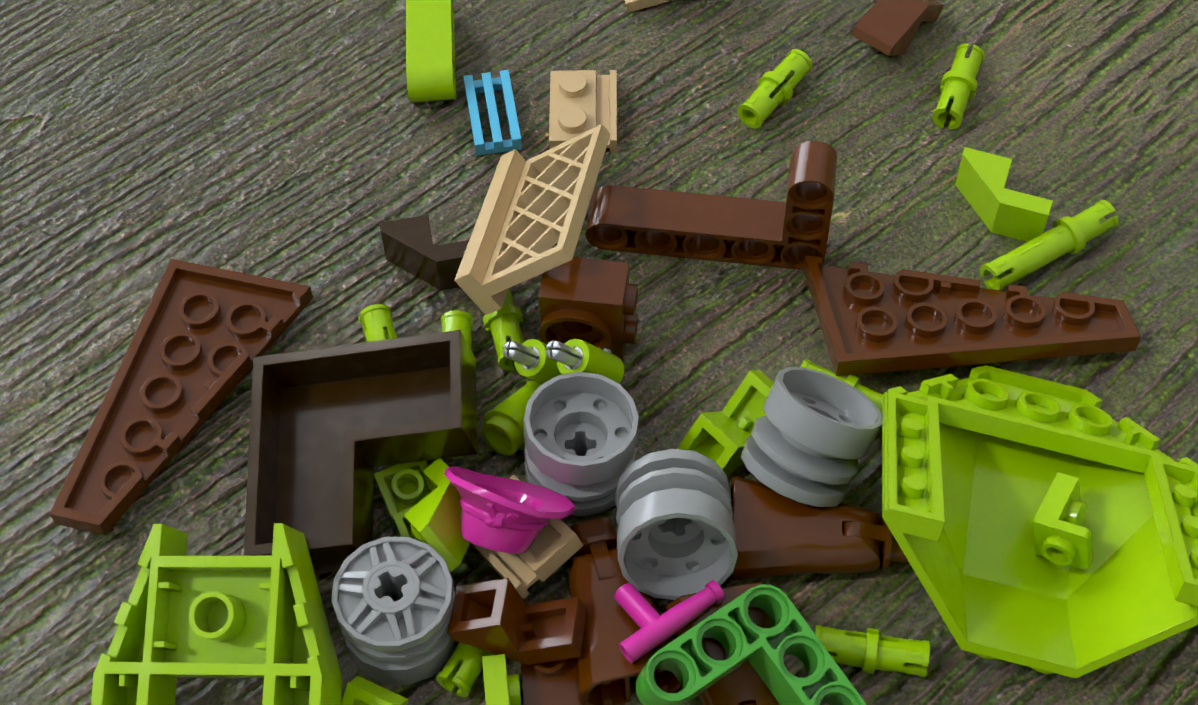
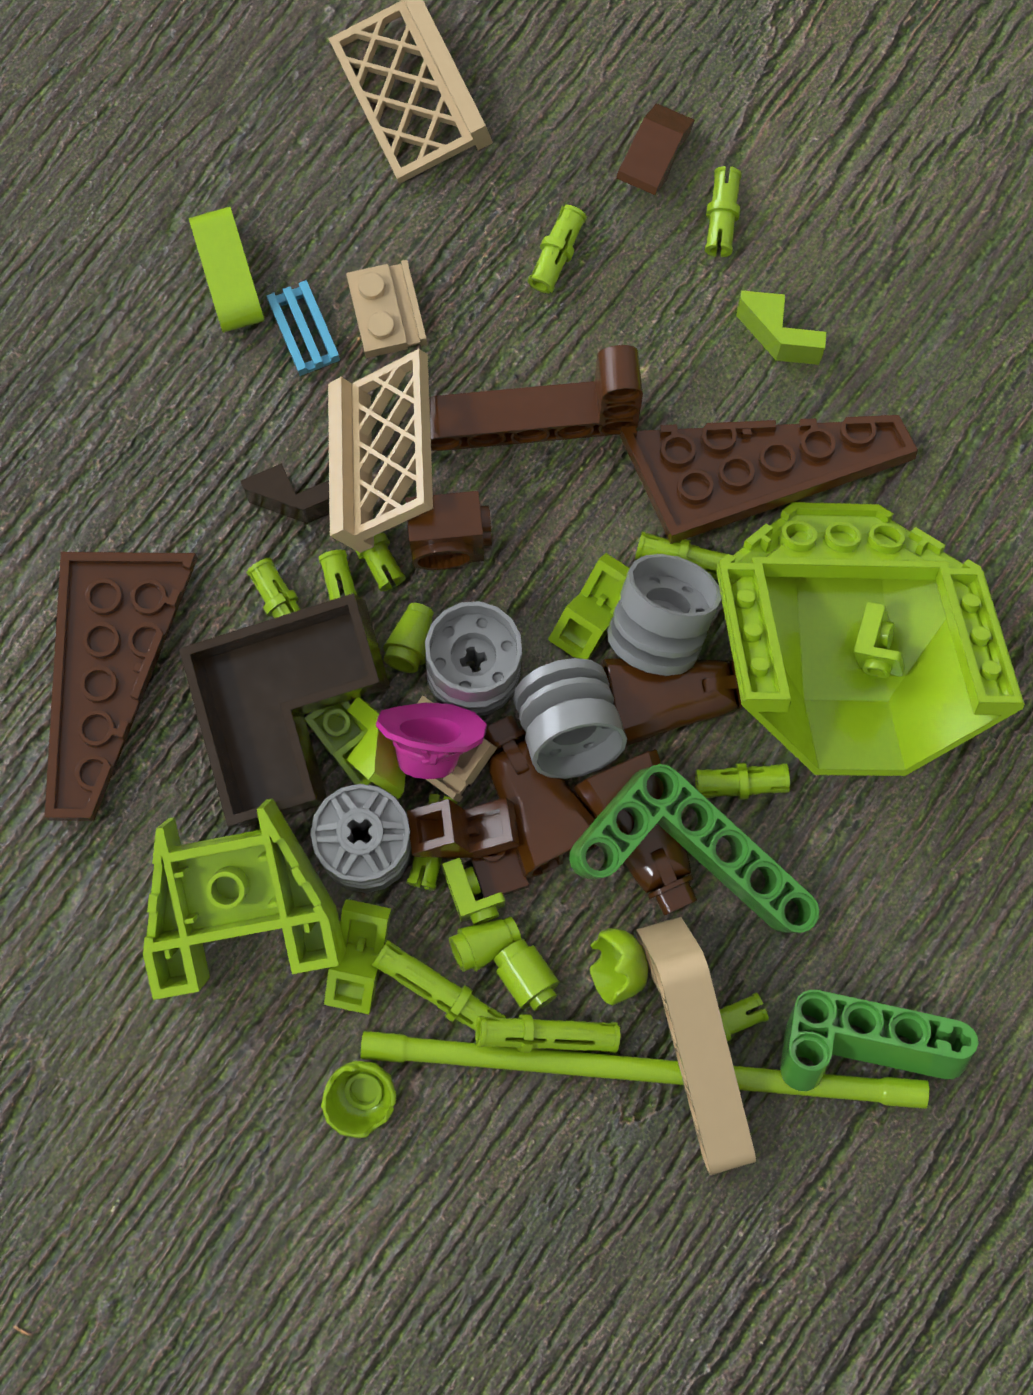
camera: 15 degrees left, 20 degrees up
(545, 361) = (439, 585): lime piece -> none
(657, 627) = (576, 811): dark pink piece -> none
(1066, 236) = (842, 357): lime pin -> none

